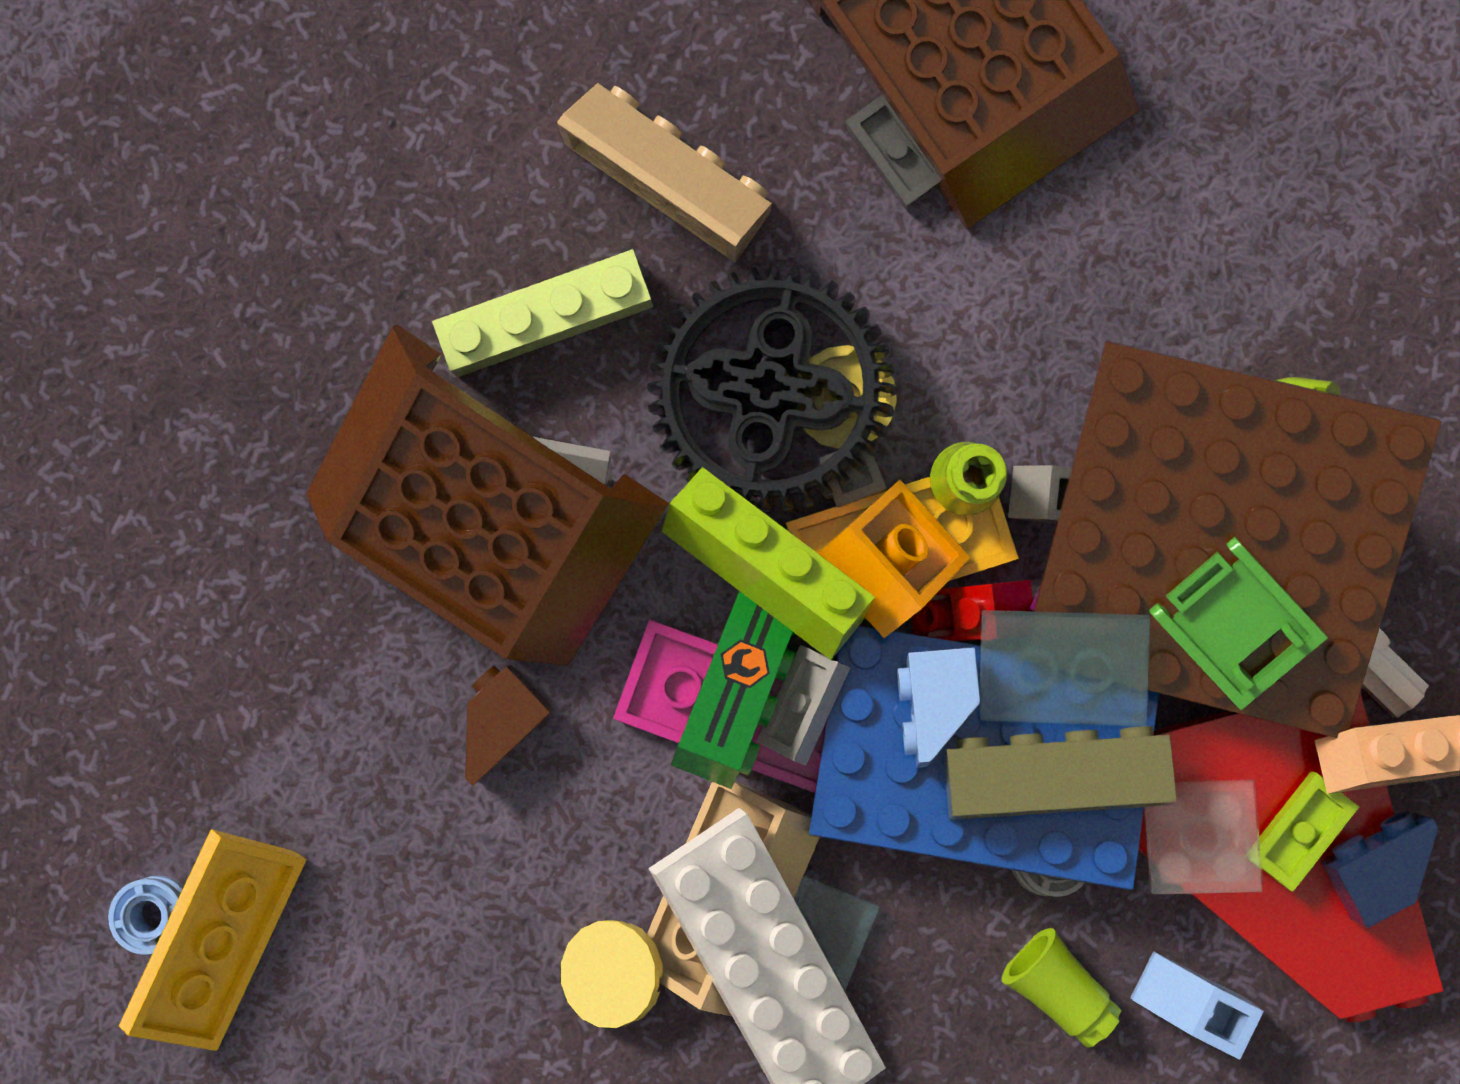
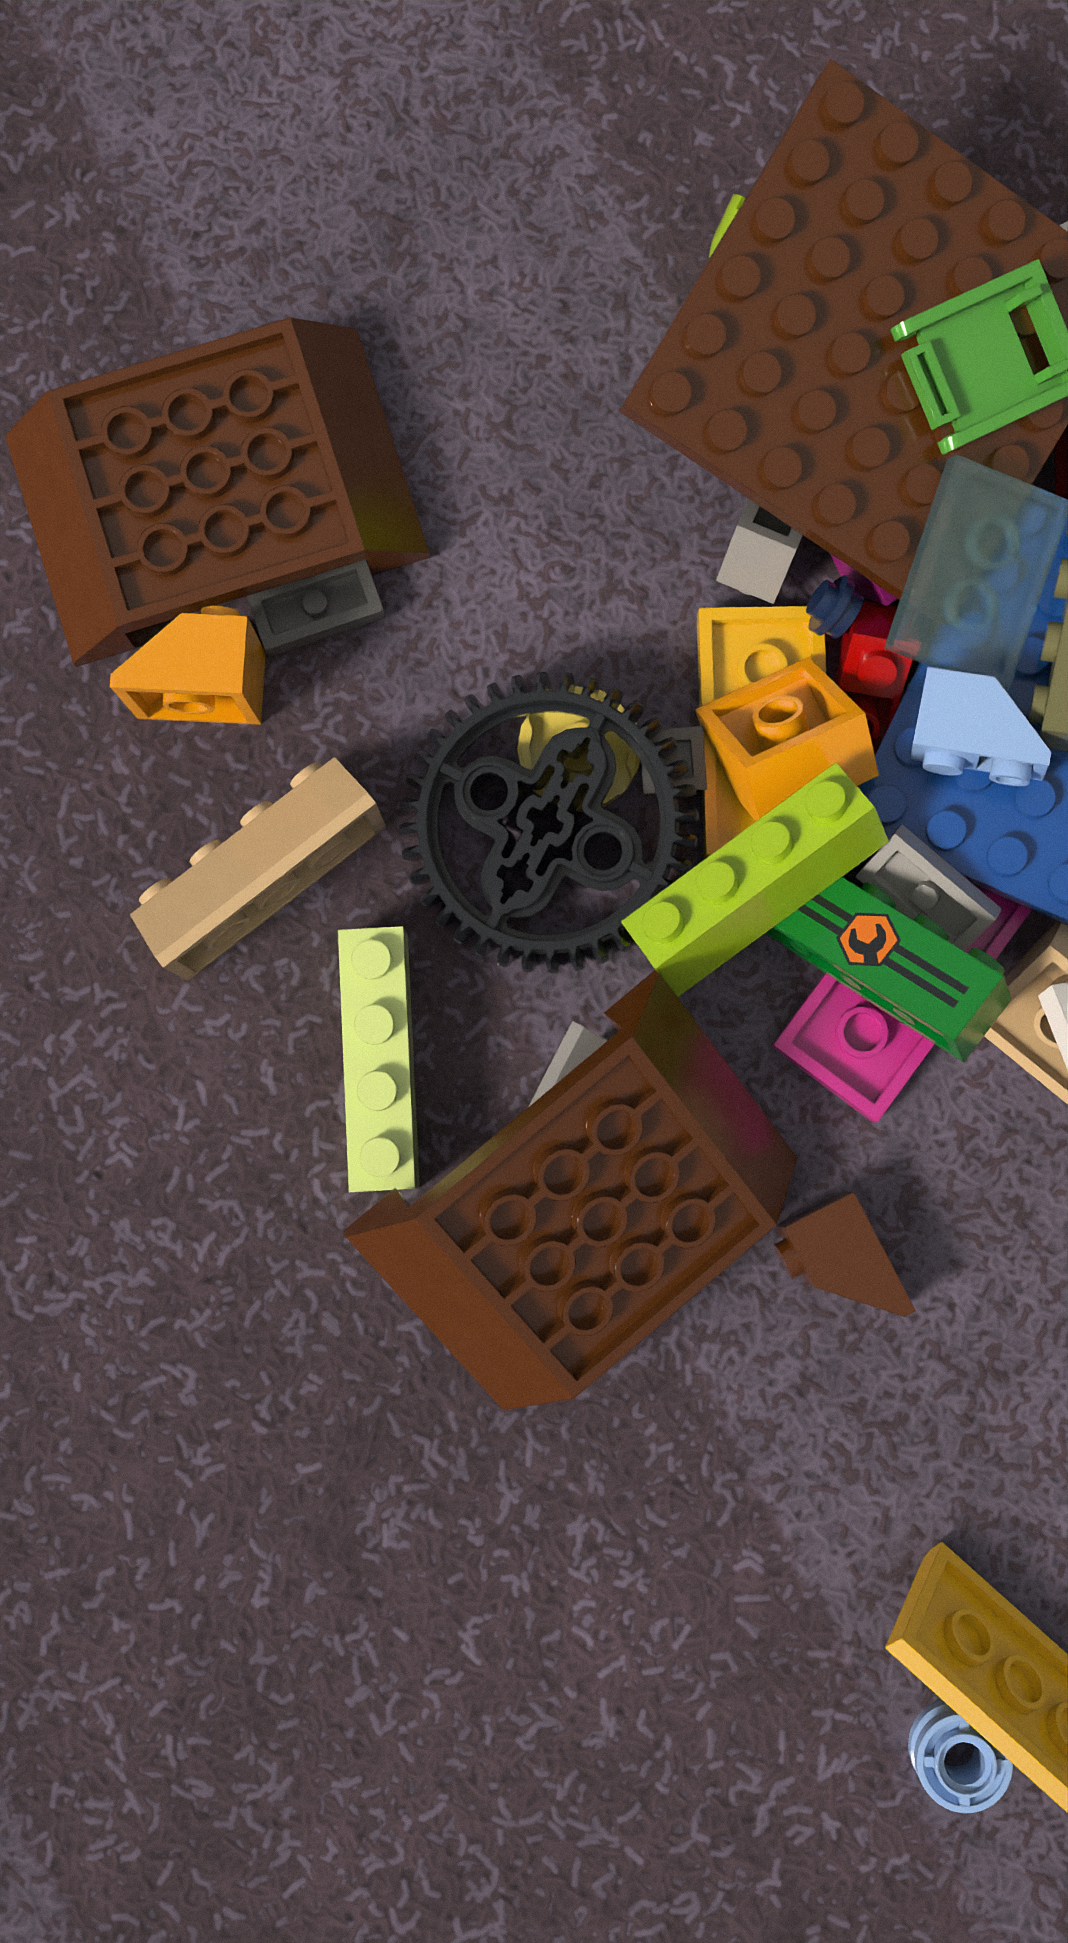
camera: 75 degrees left, 5 degrees down
(809, 74) = (197, 671): none -> light orange slope
(948, 479) = (714, 642): lime plant -> none
(1014, 565) = (834, 607): none -> dark blue plate

